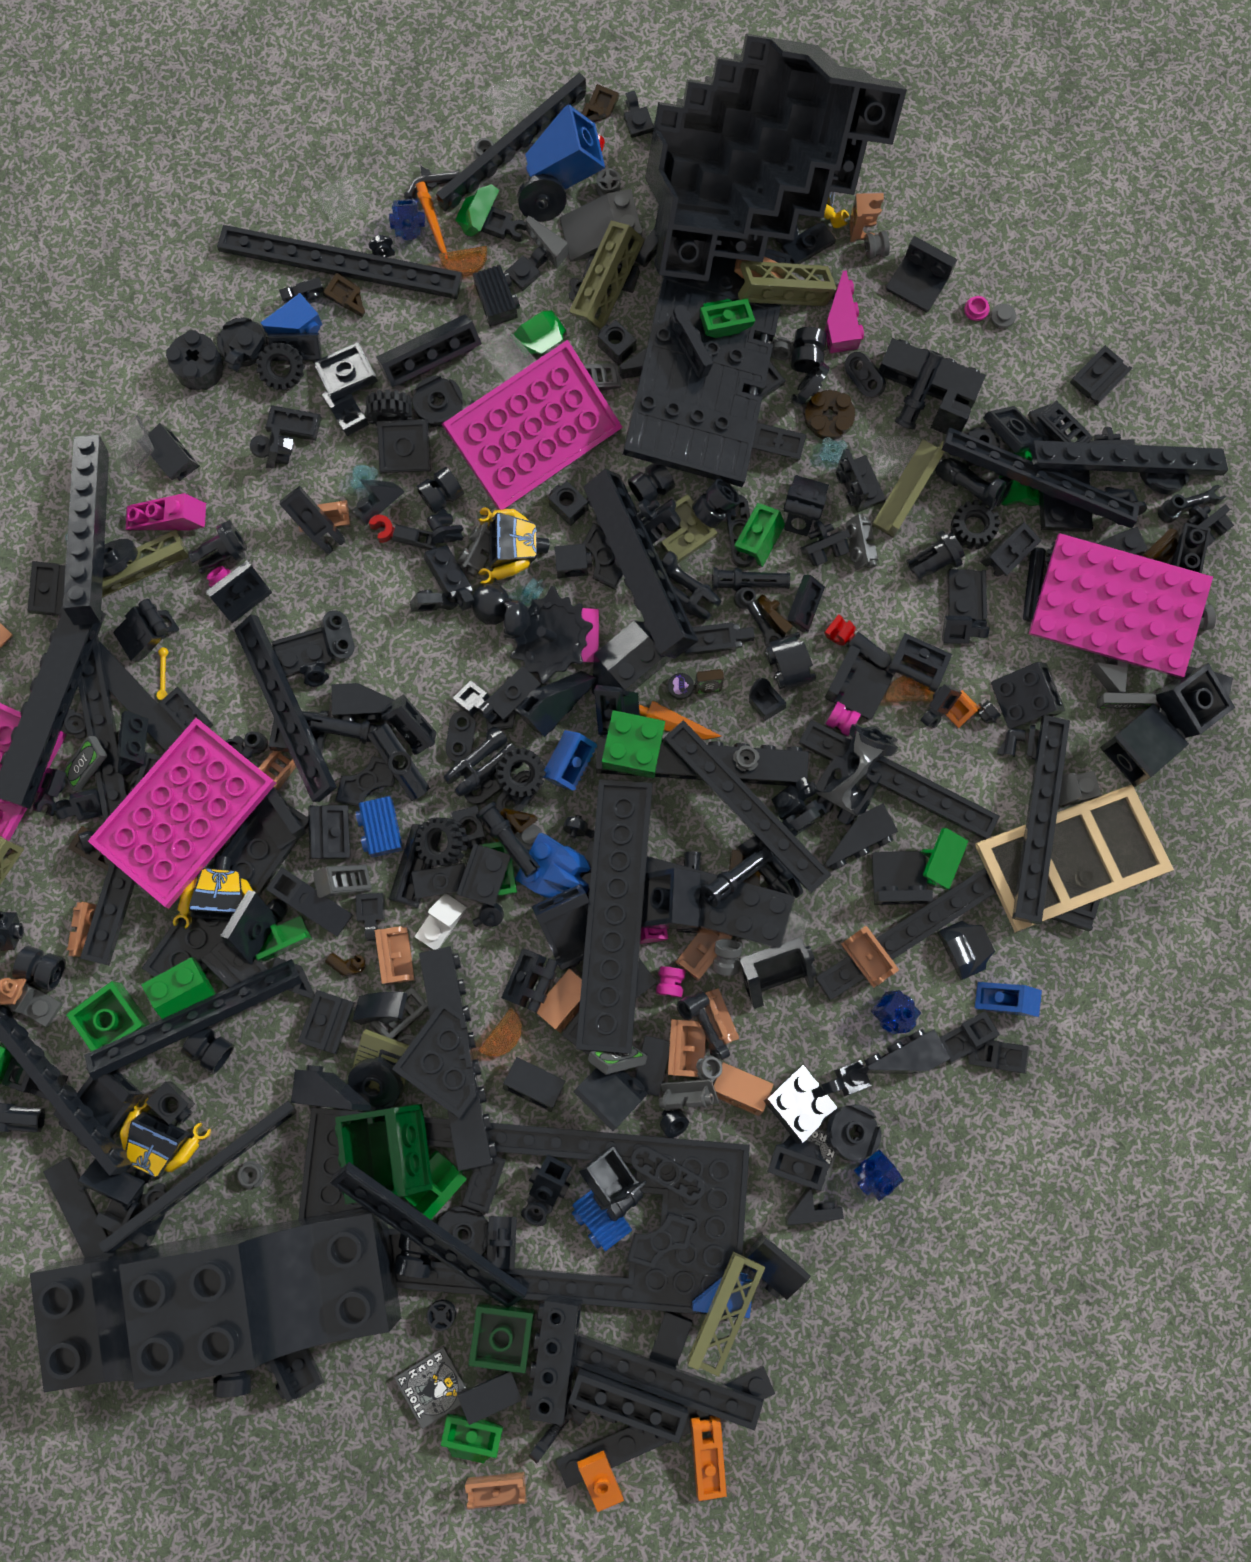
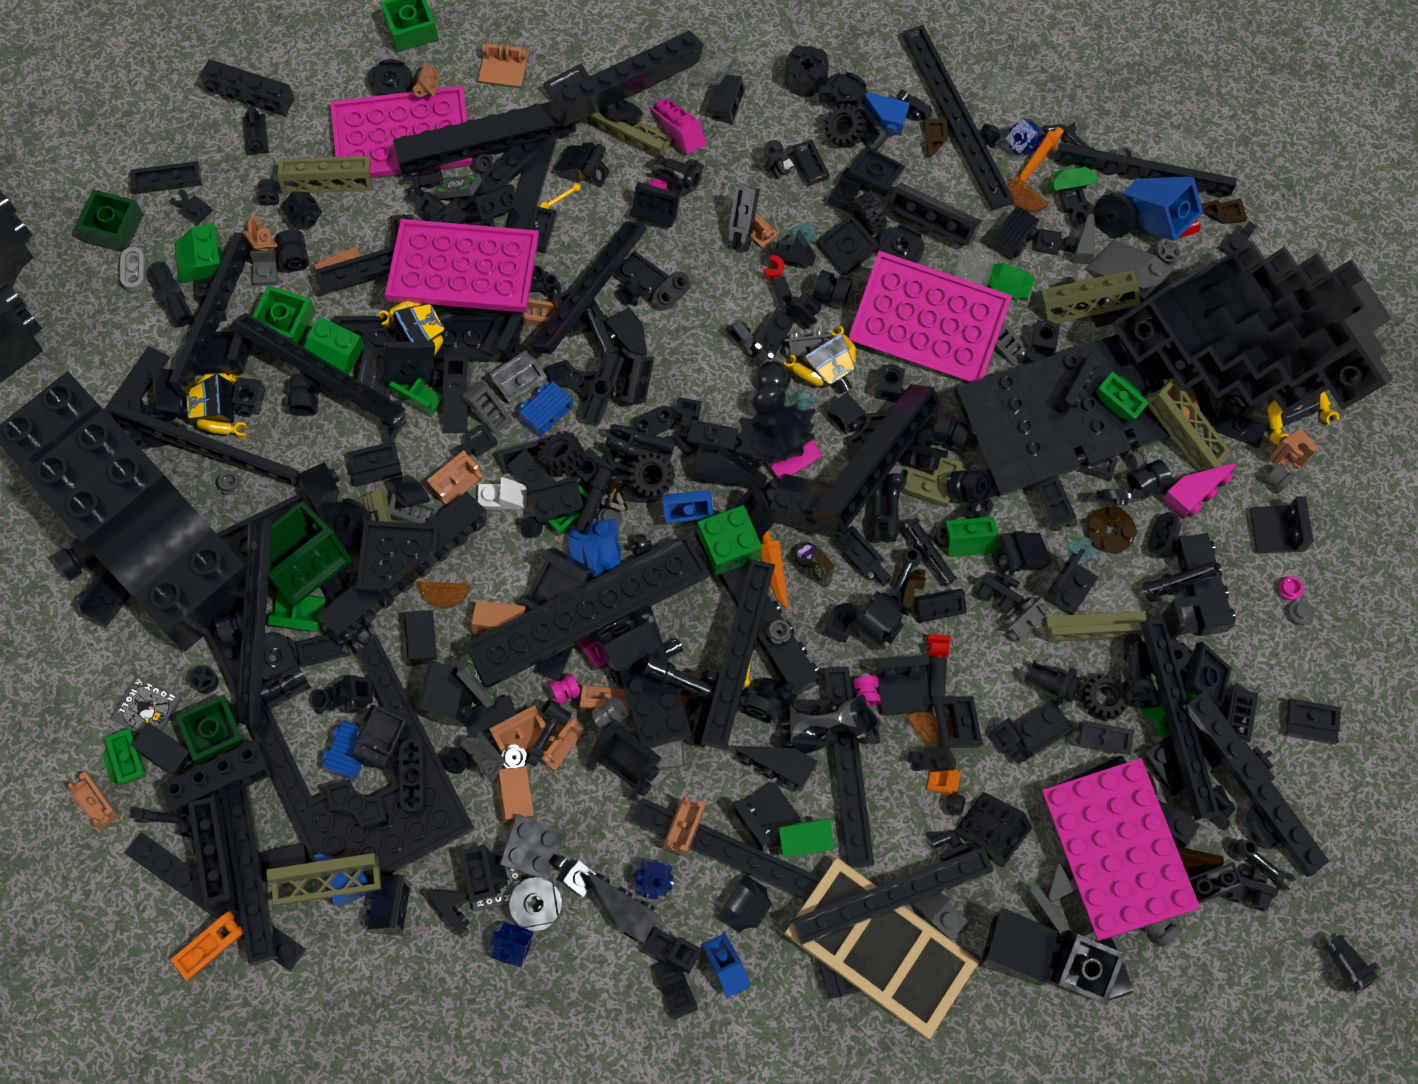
camera: 55 degrees right, 10 degrees down
(346, 967) = (424, 452): dark brown arm -> none
(524, 978) = (498, 584): black plate -> none
(600, 1481) = (143, 873): orange plate -> none

